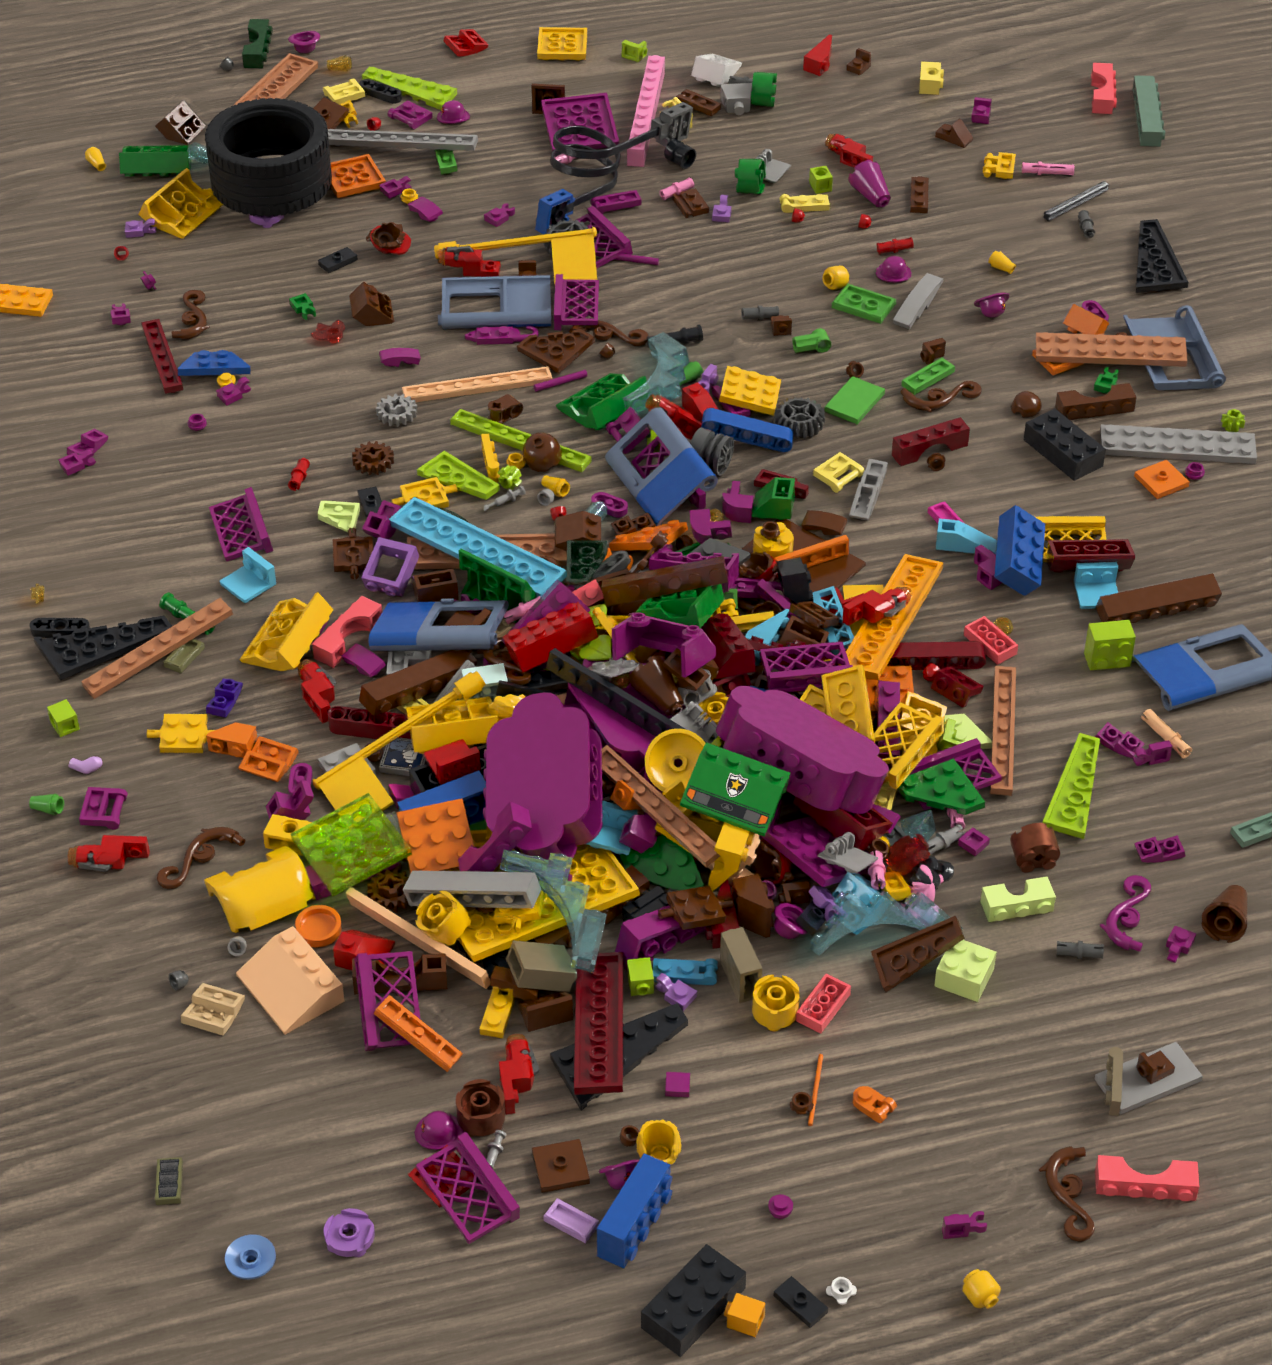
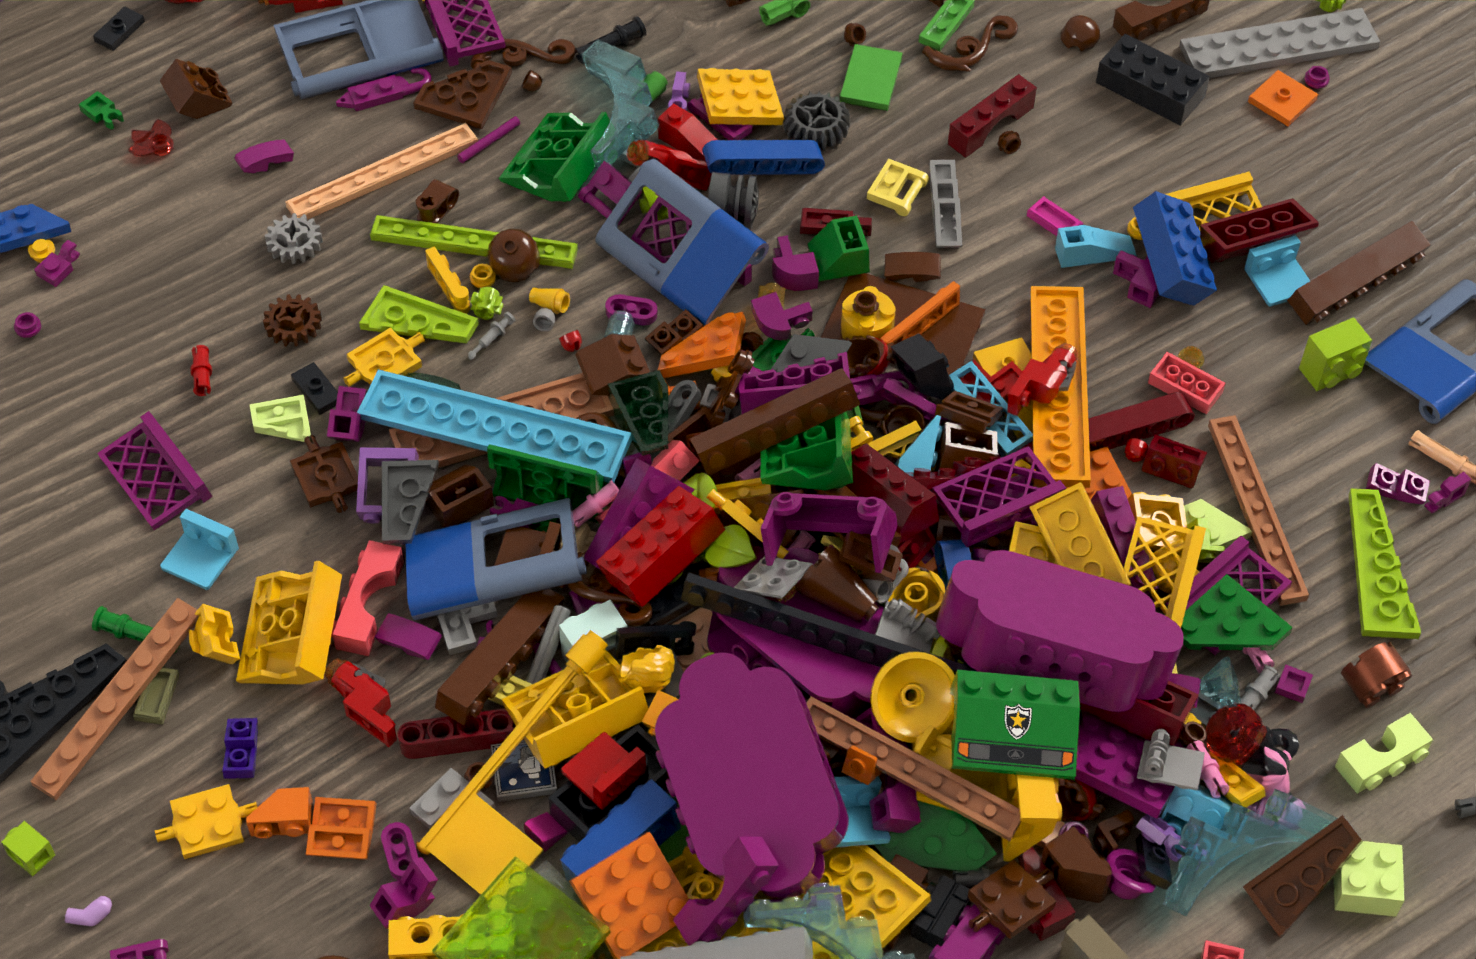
camera: 20 degrees left, 10 degrees up
(235, 626) = (213, 635): none -> yellow cylinder
(394, 573) = (404, 497): none -> dark grey wing

